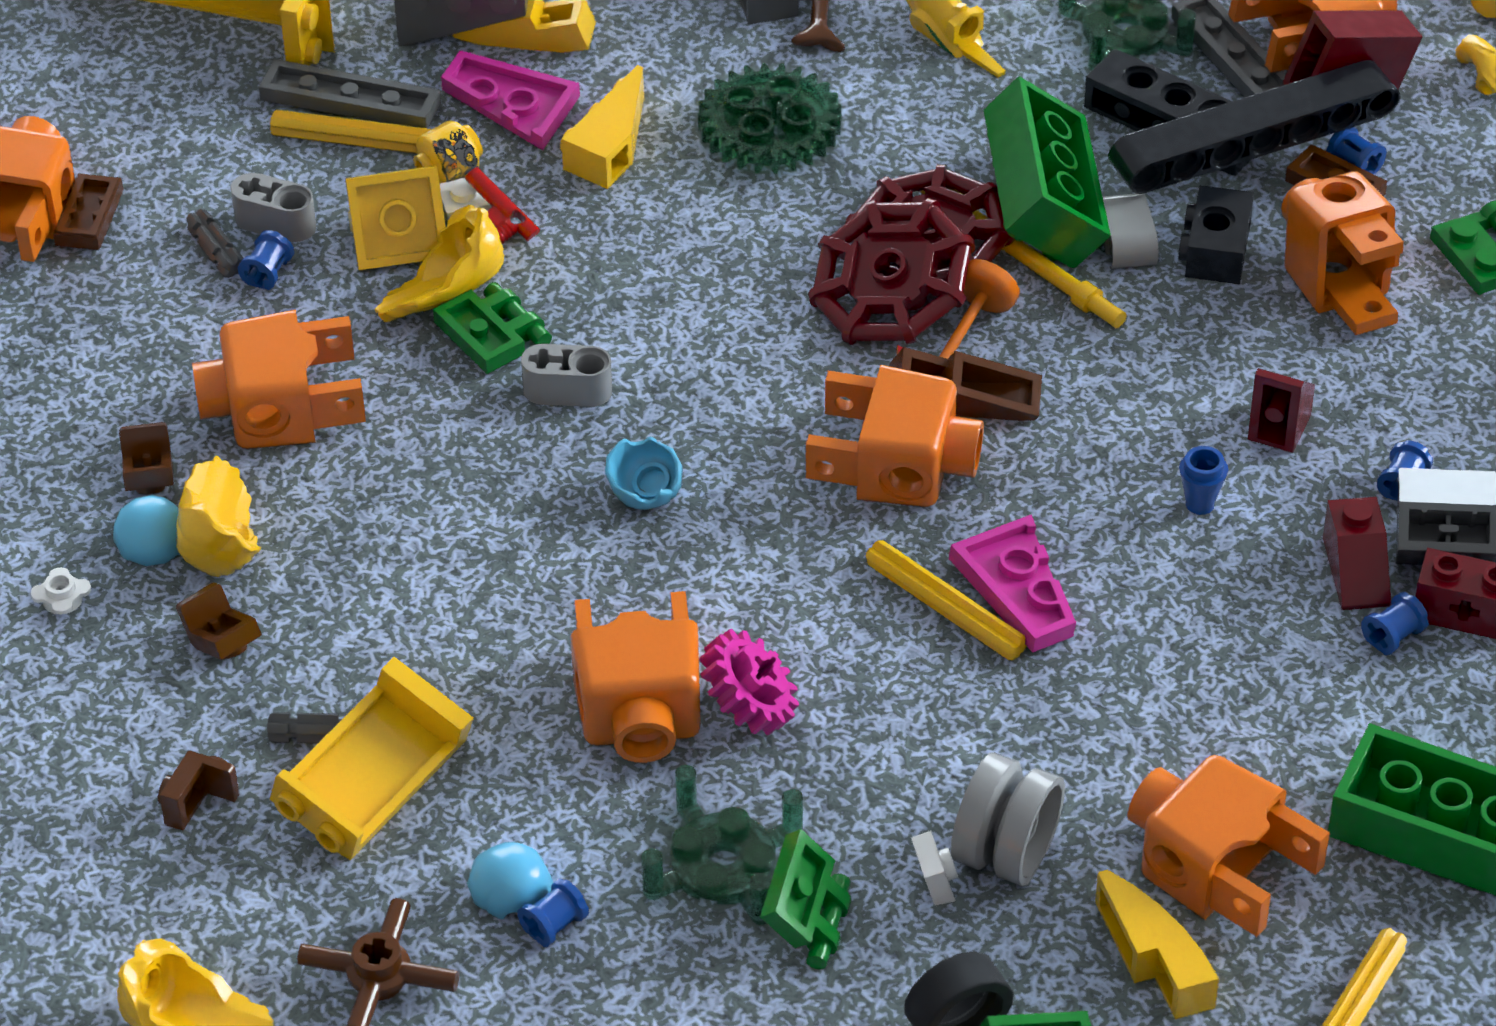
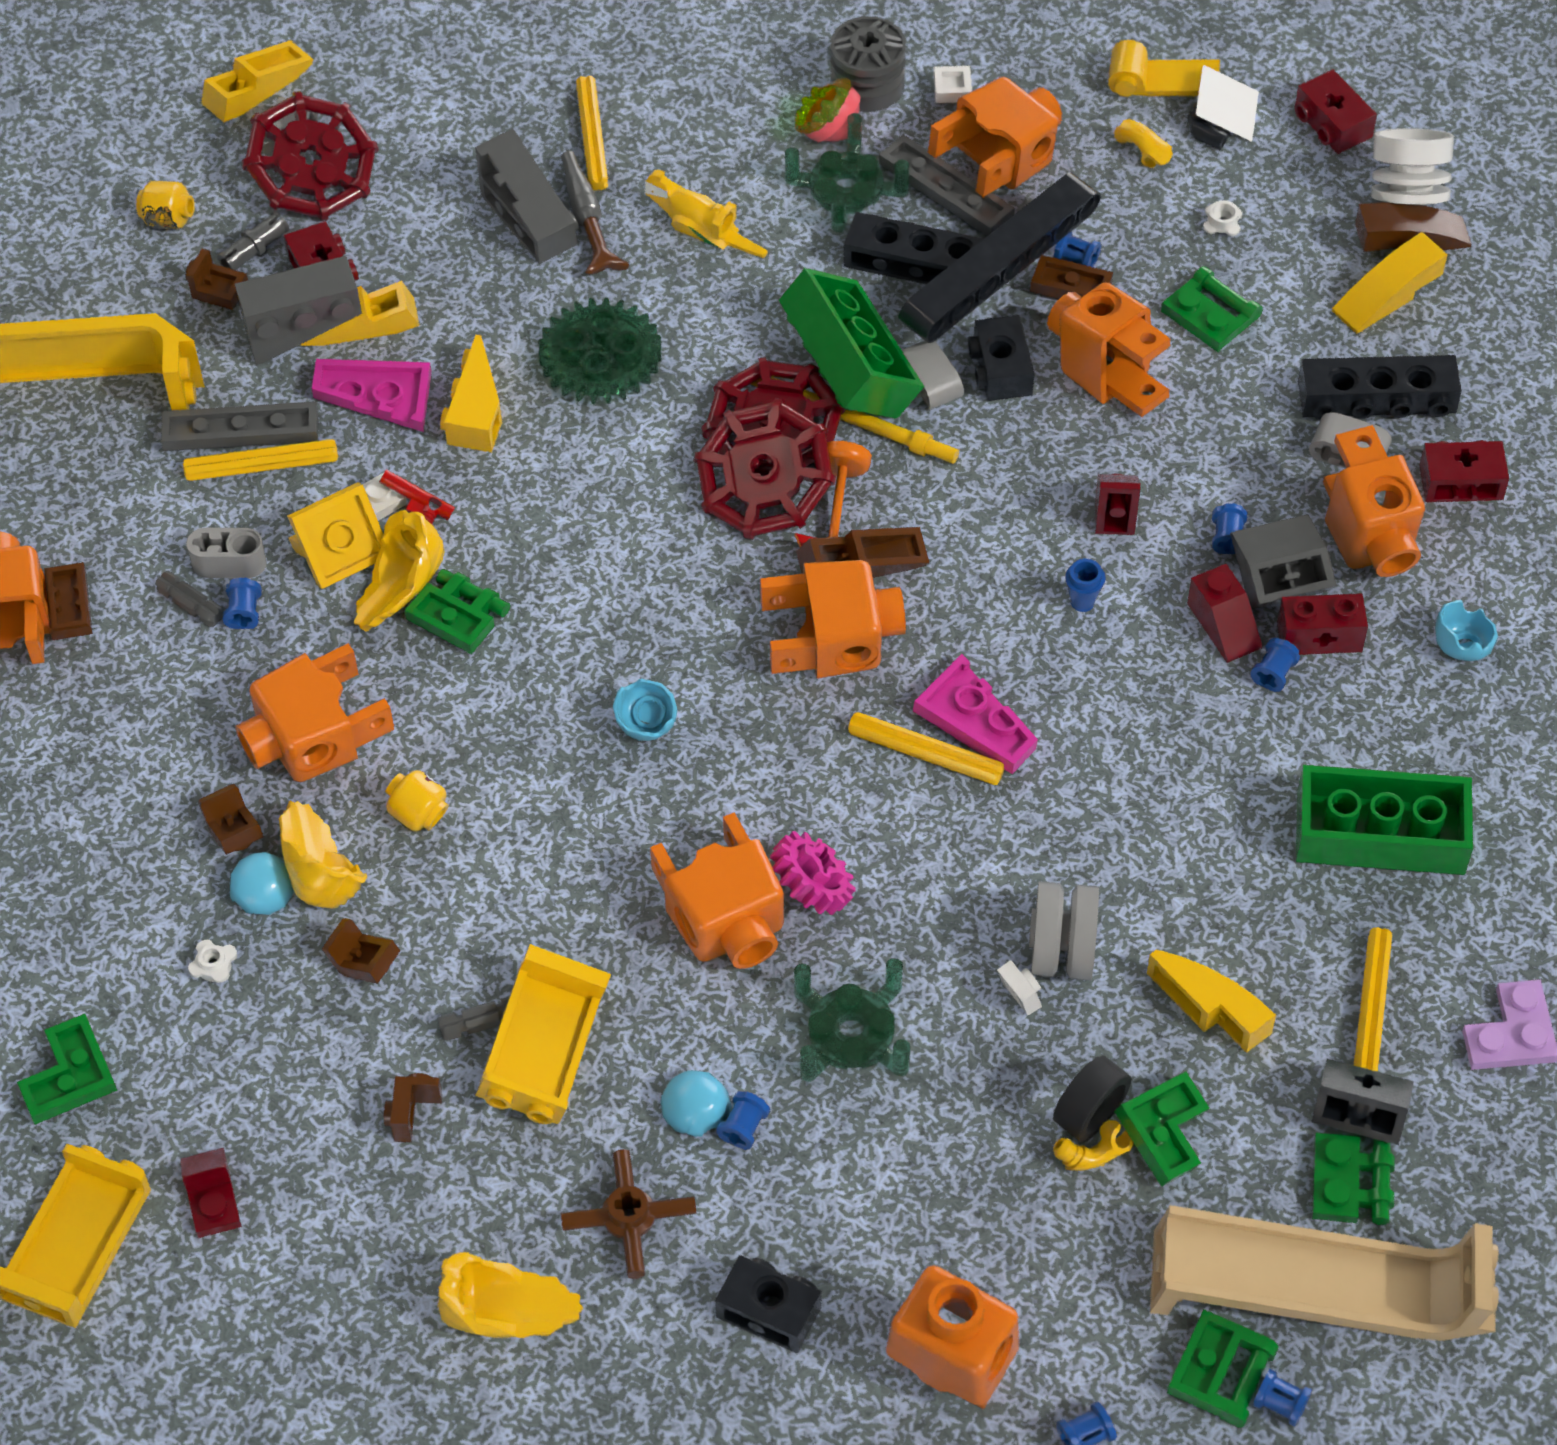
camera: 20 degrees left, 10 degrees up
(352, 494) = (416, 800): none -> yellow head
(451, 148) = (350, 459): head -> none
(566, 375) = (535, 638): light grey beam -> none
(805, 899) = (938, 1046): green plate -> none
(1215, 832) = (1217, 892): orange piece -> none
(1349, 37) = (1045, 160): dark red brick -> none

